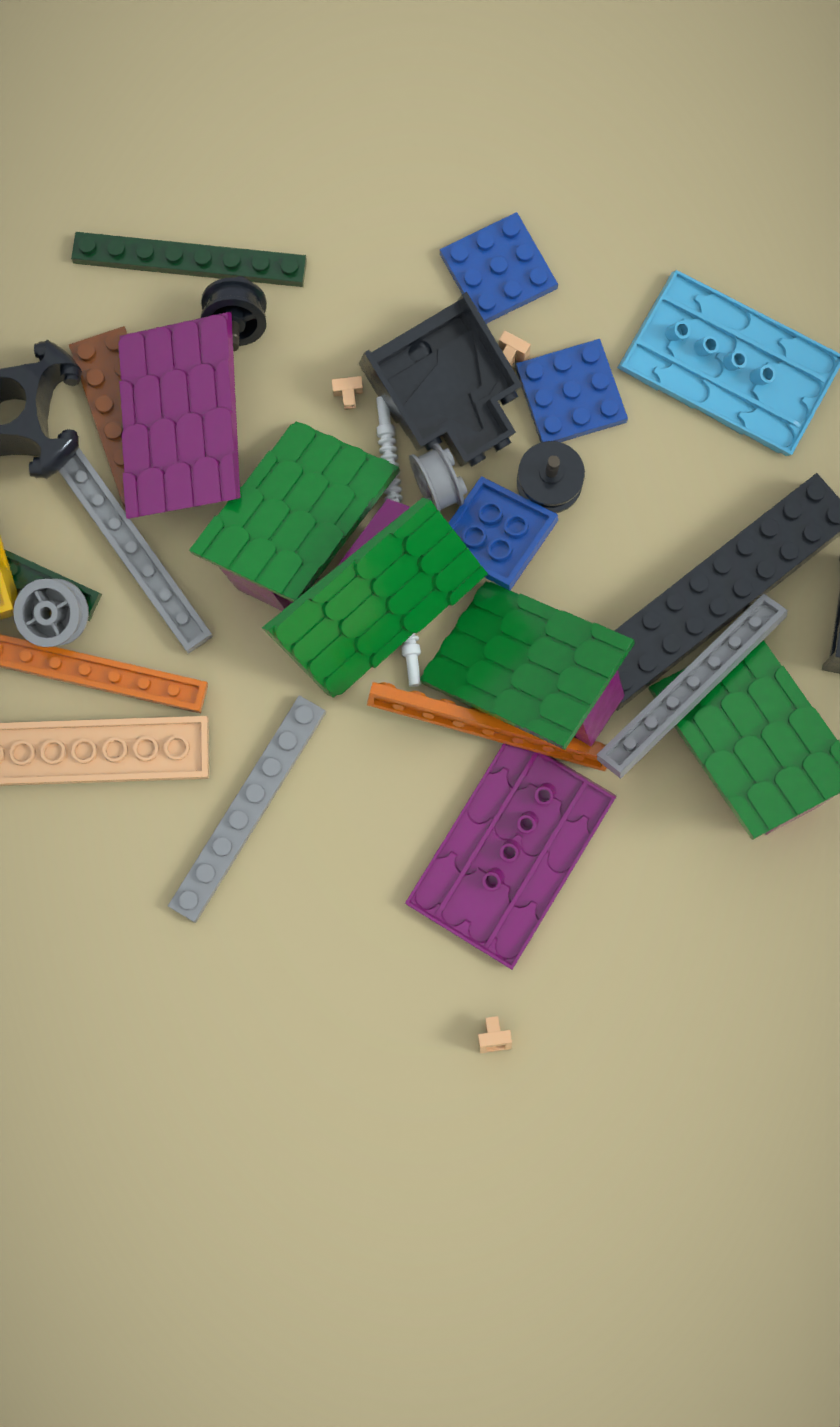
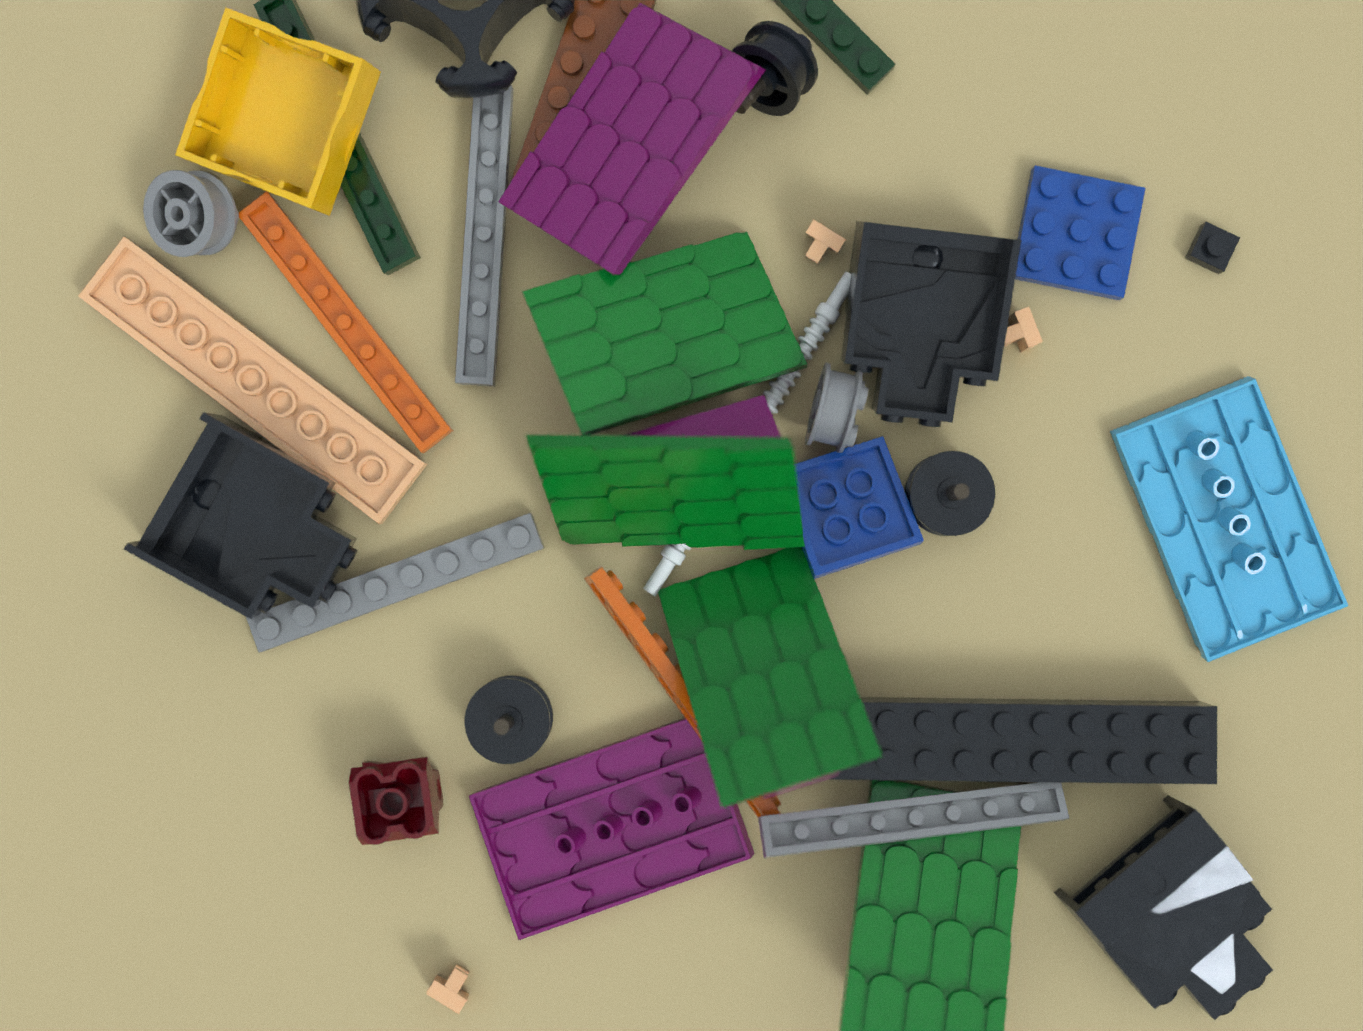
camera: 40 degrees right, 10 degrees up
(67, 608) = (349, 240): light grey wheel -> none
(122, 836) = (246, 524): none -> black panel
(359, 937) = (395, 800): none -> dark red piece
(390, 831) = (508, 719): none -> black wheel
(571, 392) = (1043, 420): blue plate -> none
(586, 216) = (1212, 248): none -> black plate

